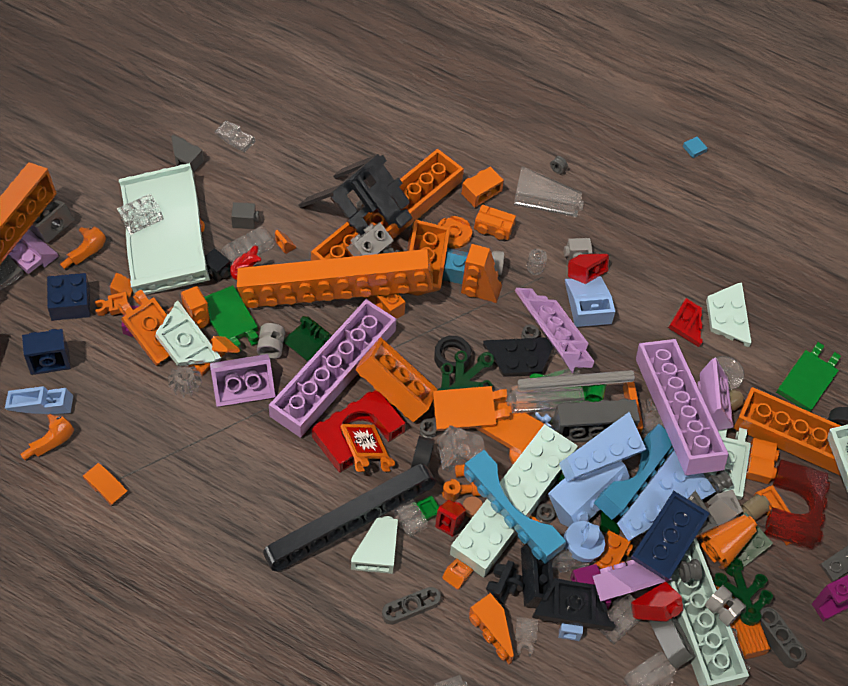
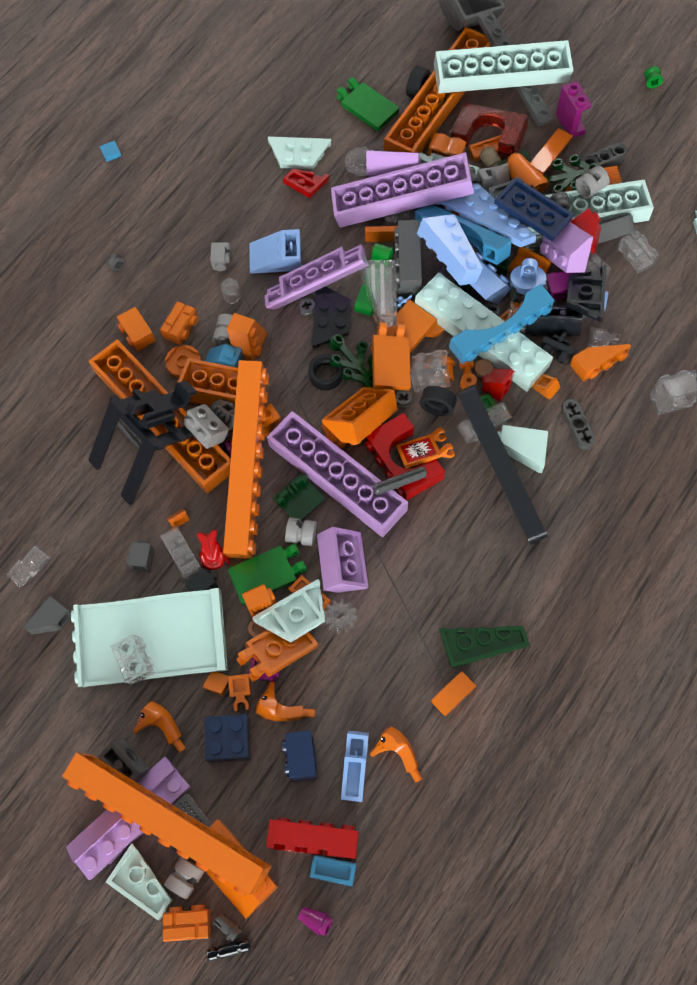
camera: 75 degrees left, 10 degrees up
(94, 327) = (270, 709): none -> orange animal
(155, 506) = (480, 643): none -> dark green wing
(223, 344) = (308, 573): orange slope -> none
(322, 417) = (399, 480): none -> dark grey axle
(546, 194) = (150, 277): clear slope -> none
(575, 380) = (378, 263): light grey axle -> none
(587, 267) = (241, 251): red slope -> none
(778, 573) = (551, 150): none -> orange tile

